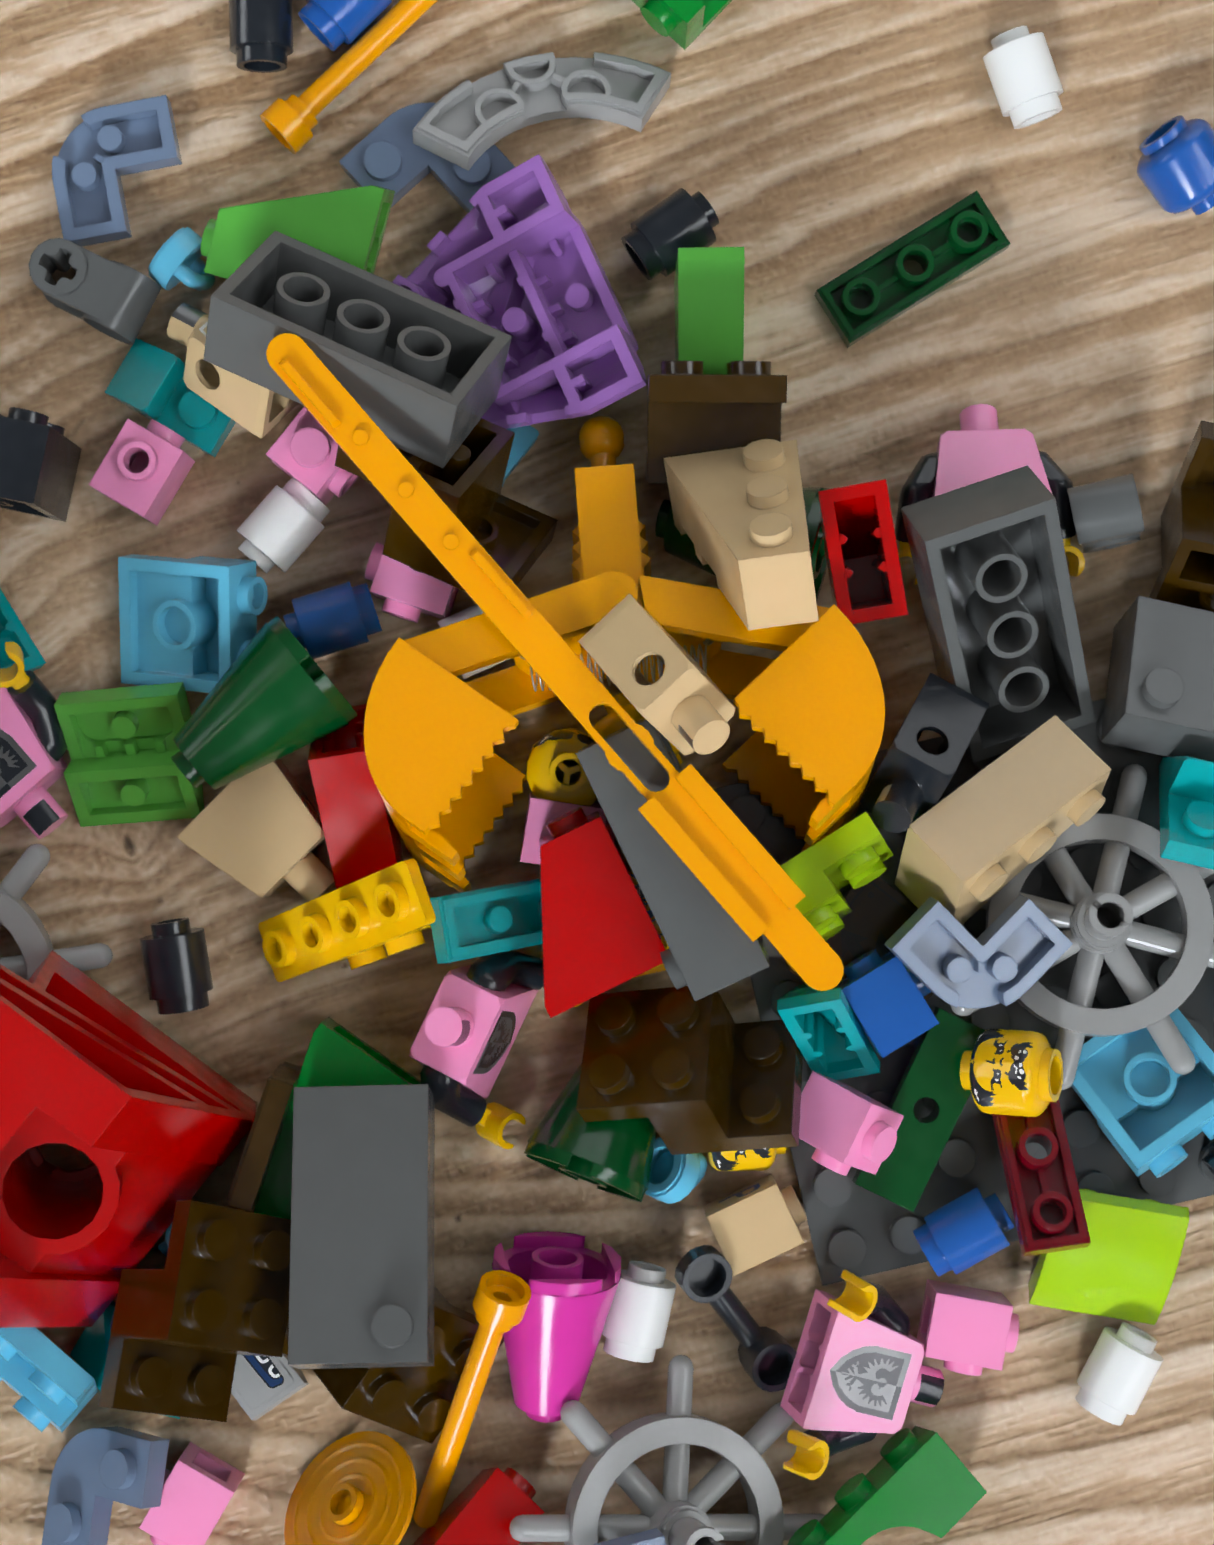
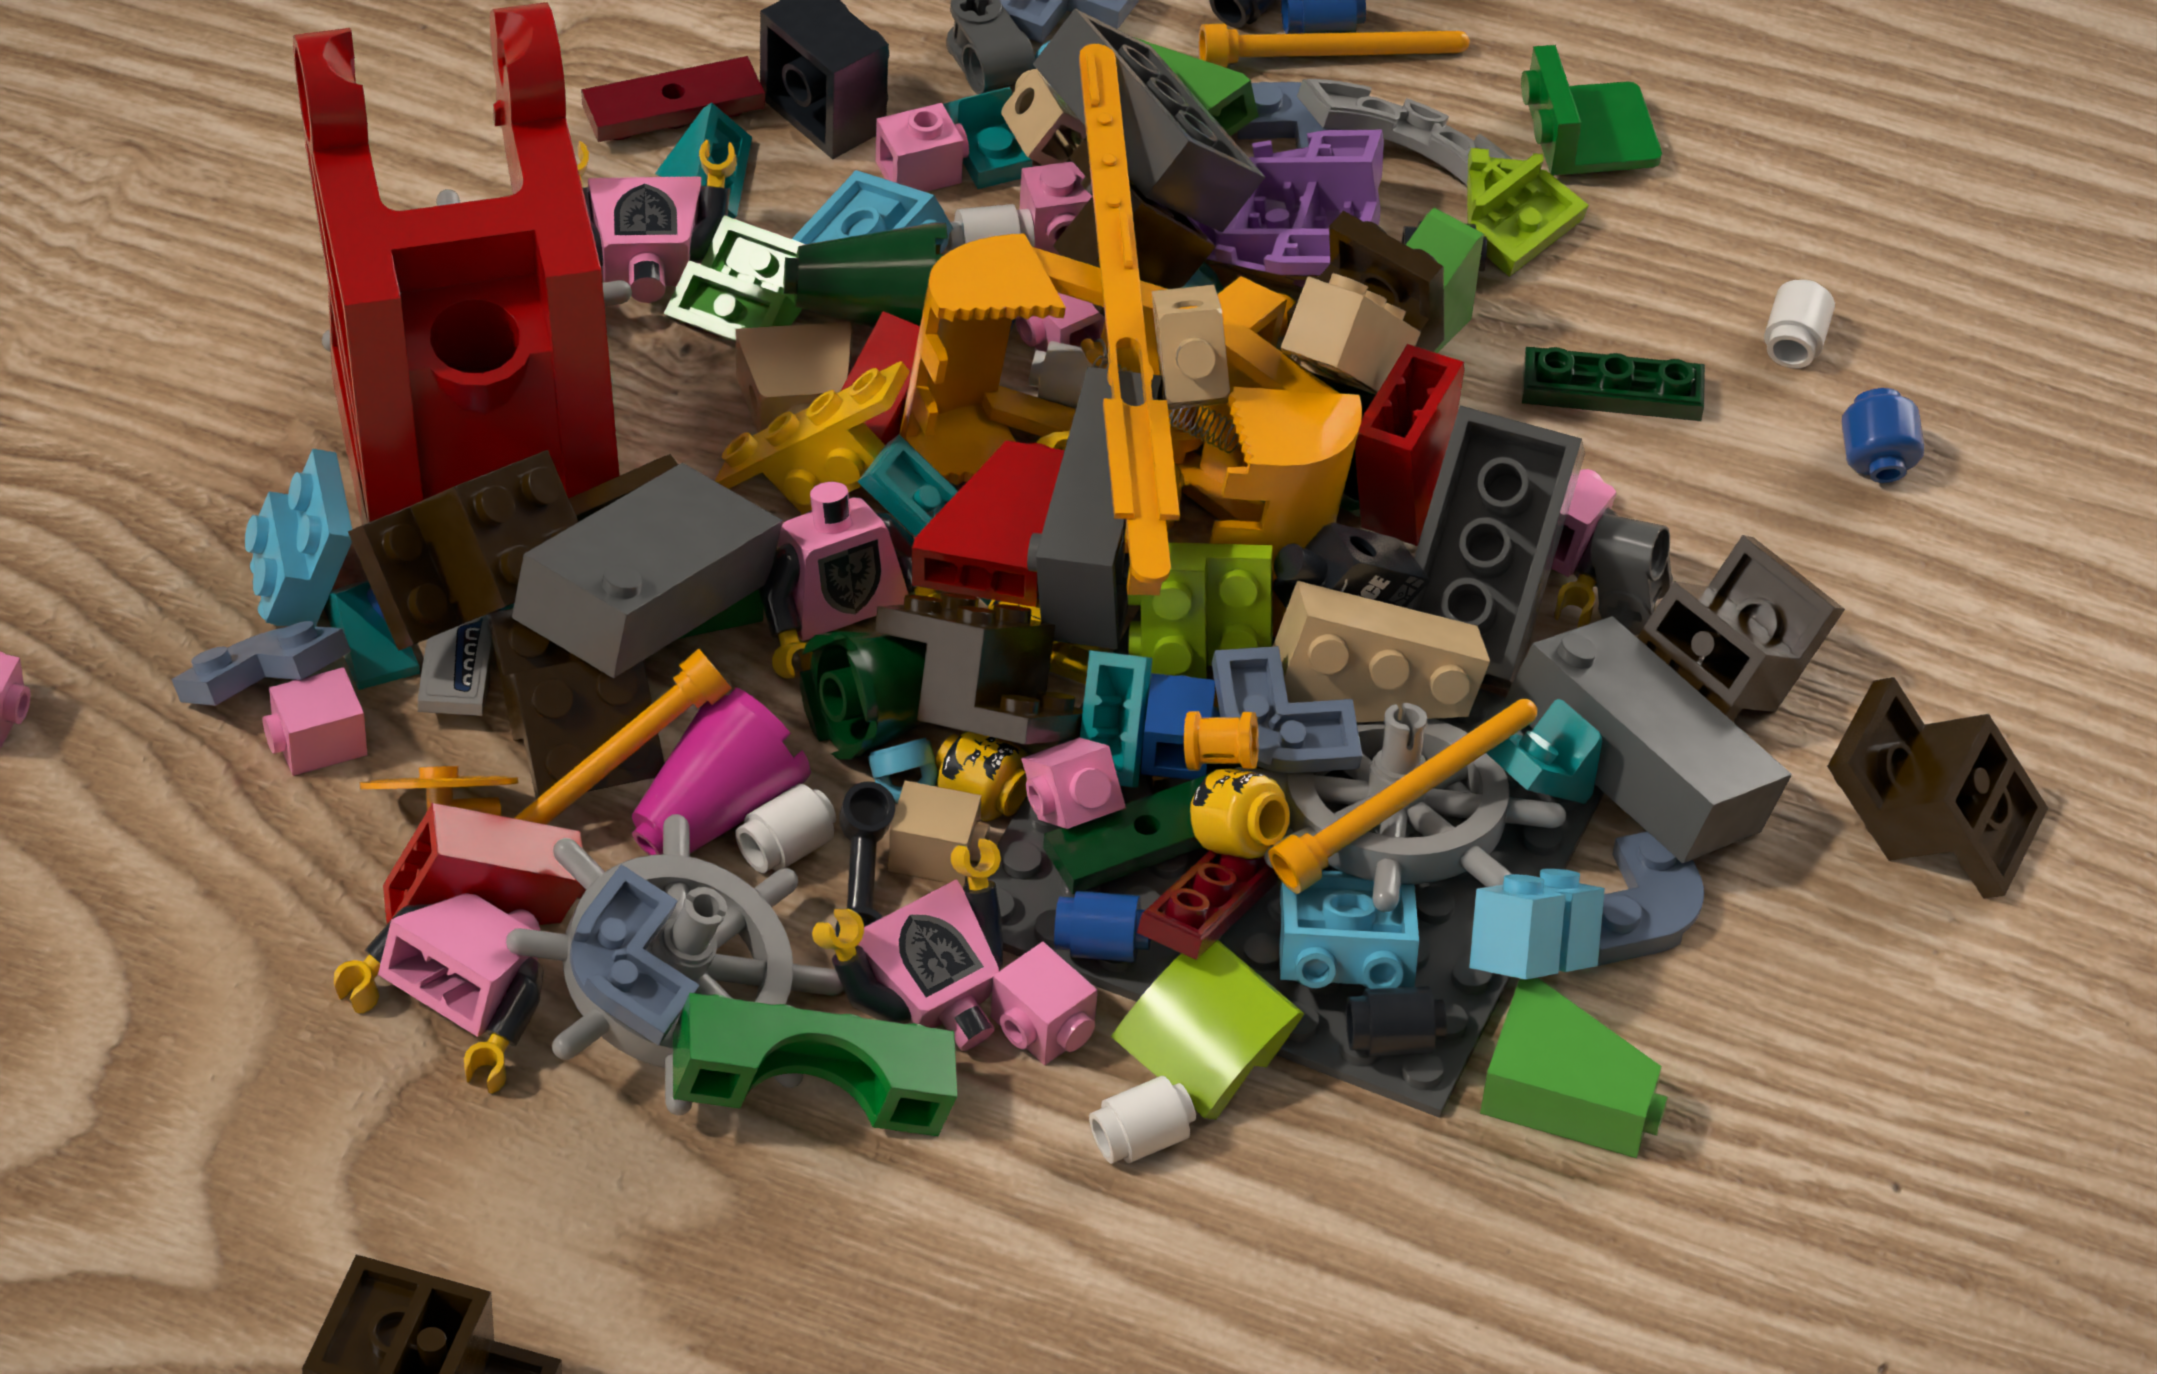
camera: 30 degrees right, 40 degrees down
(176, 966) = (652, 418): black brick -> none
(695, 127) = (1518, 207): none -> lime slope
(966, 1039) = (1221, 740): none -> light orange bush
(1098, 1081) = (1302, 859): none -> light orange piece

